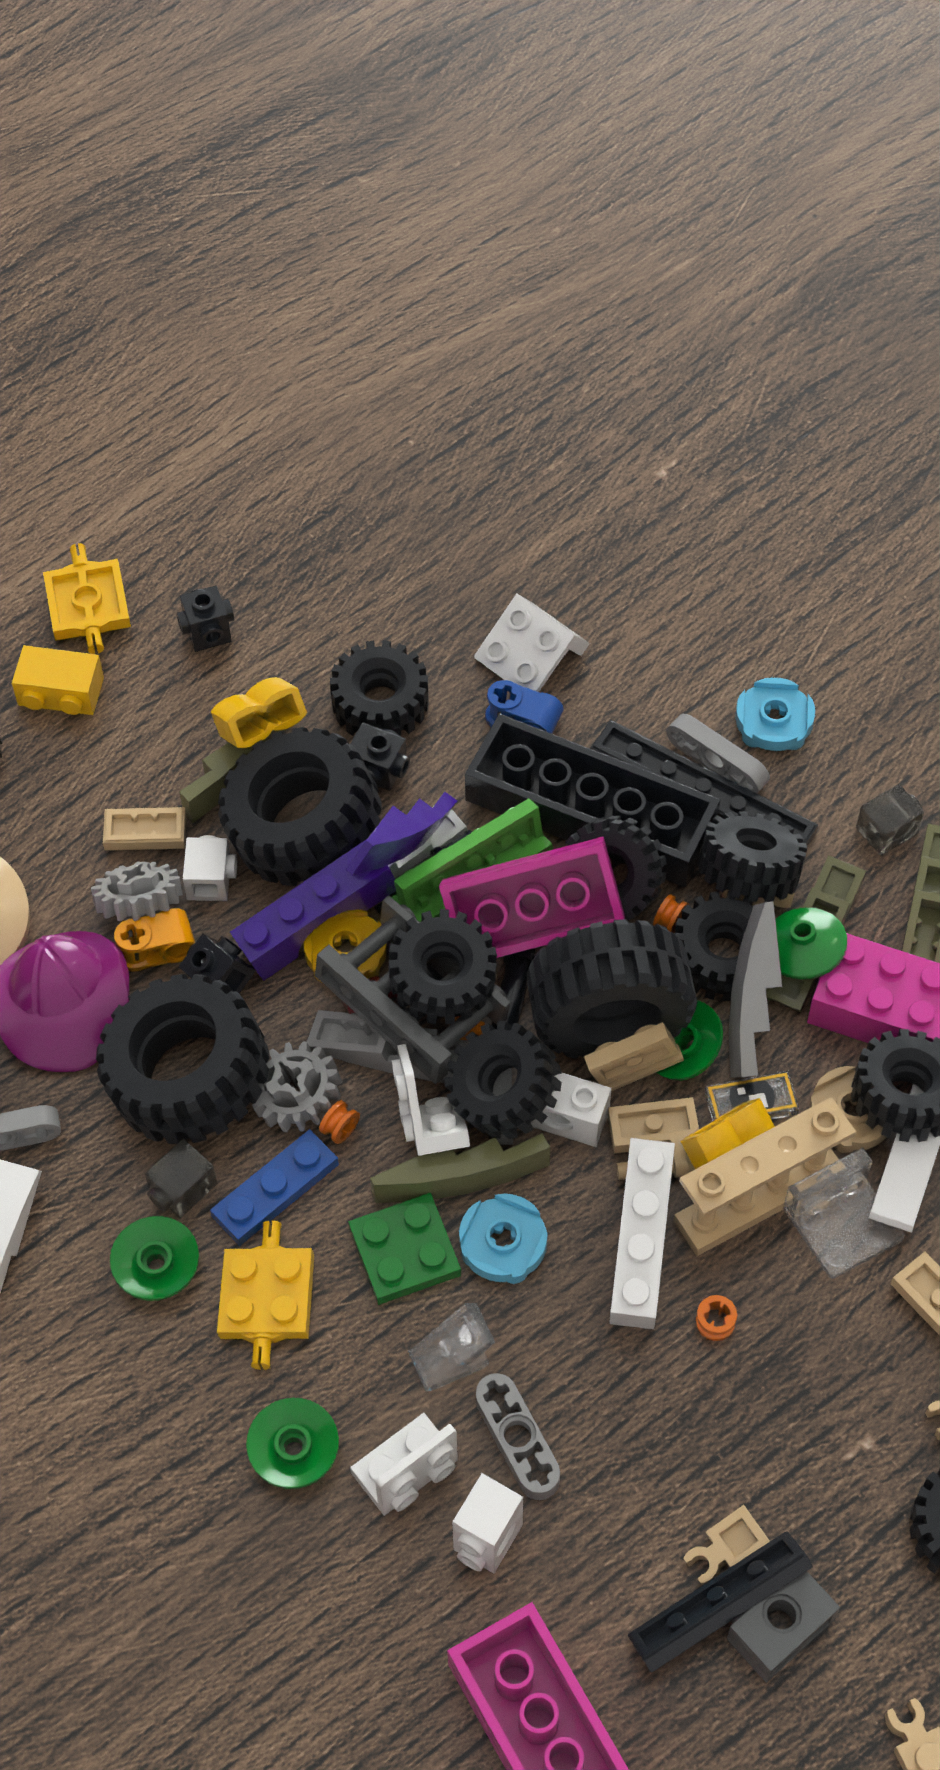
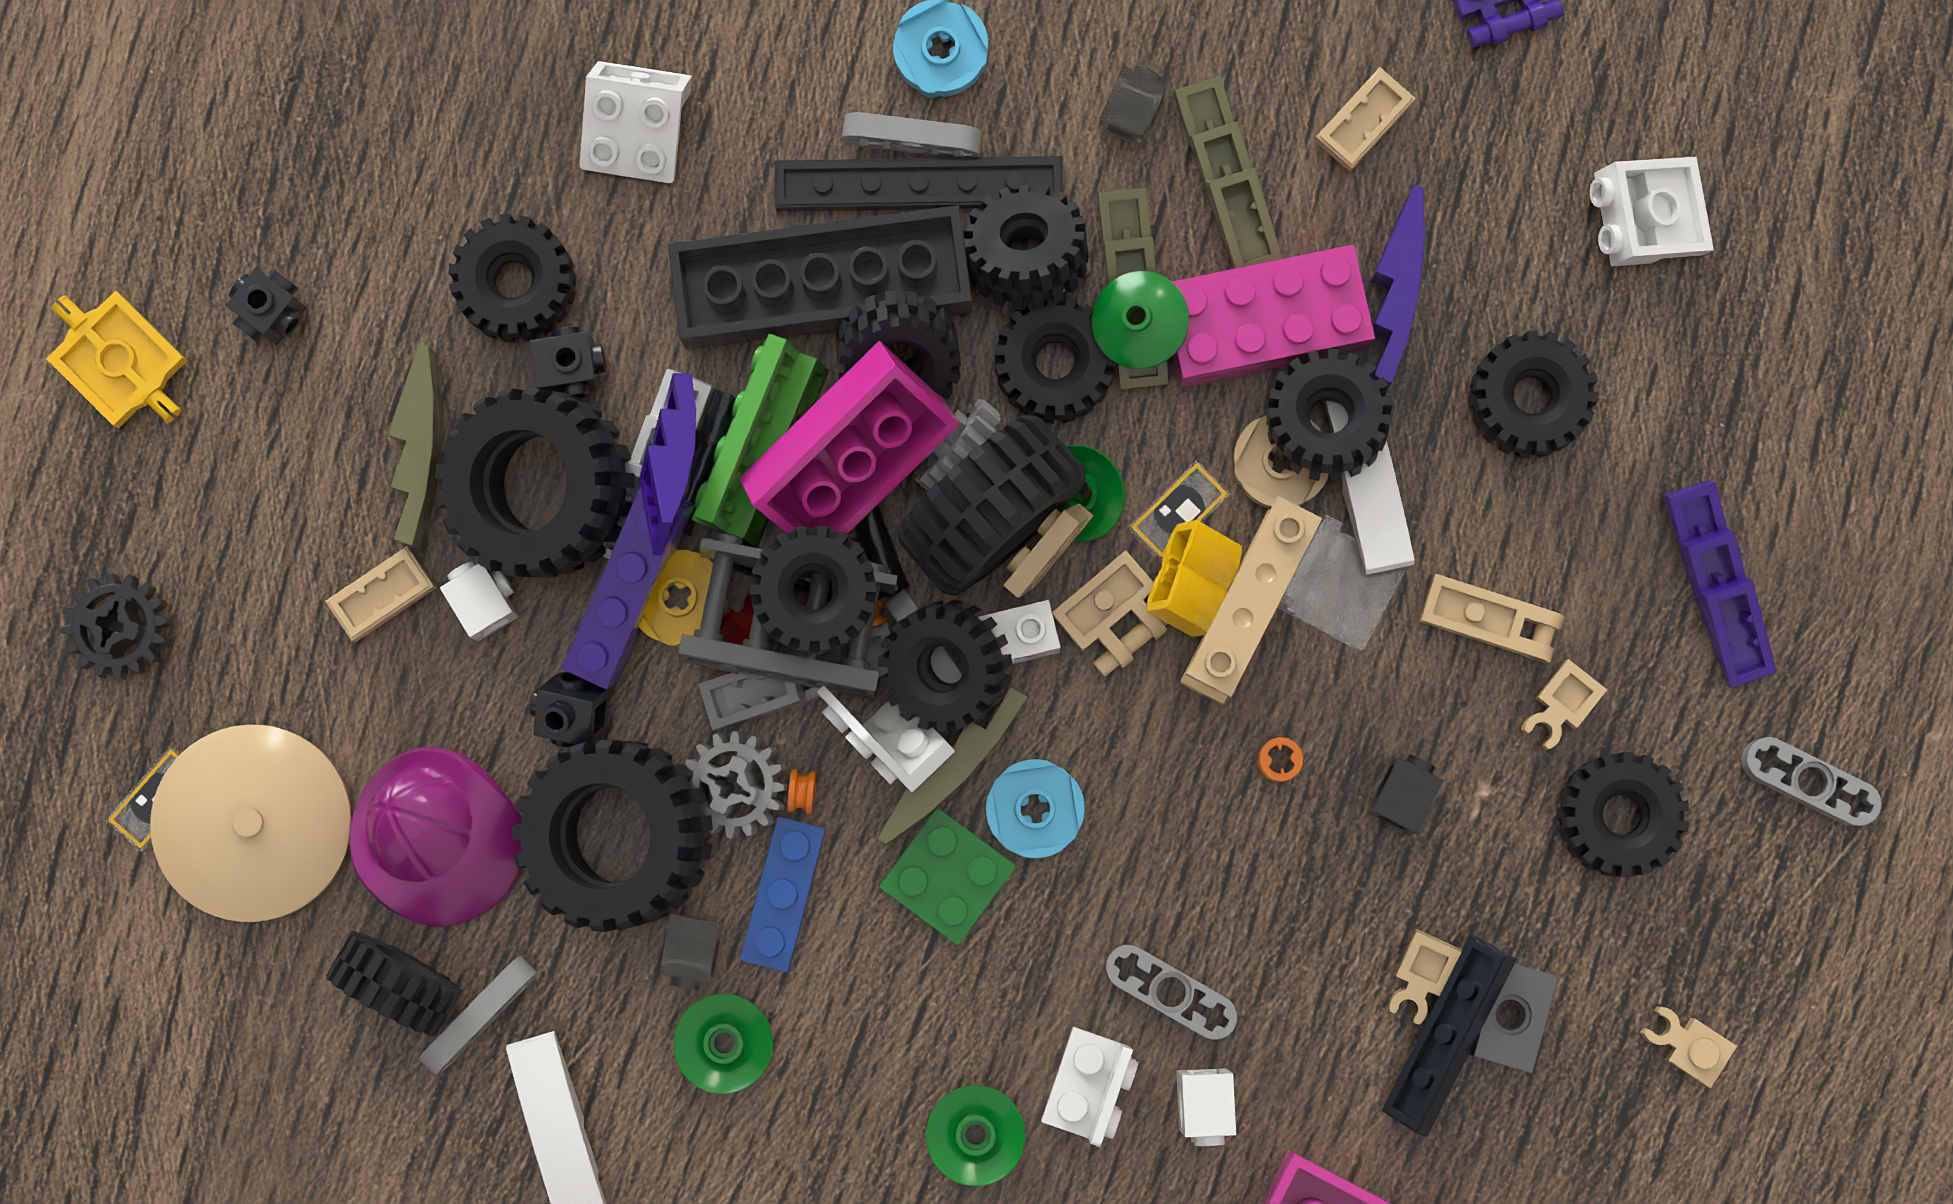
camera: 30 degrees left, 25 degrees up
(58, 680) = (162, 481): yellow brick -> none
(136, 891) = (429, 676): light grey gear -> none
(156, 939) = (490, 704): light orange piece -> none
(253, 716) = (419, 405): yellow brick -> none
(266, 1294) = (849, 1006): yellow plate -> none
(453, 1348) = (1061, 953): clear slope -> none
(525, 705) = (685, 210): blue piece -> none
(642, 1234) = (1168, 729): white brick -> none
(669, 913) = (979, 357): orange bush -> none
(755, 972) = (1115, 393): light grey slope -> none
(800, 1398) = (1406, 793): none -> black brick

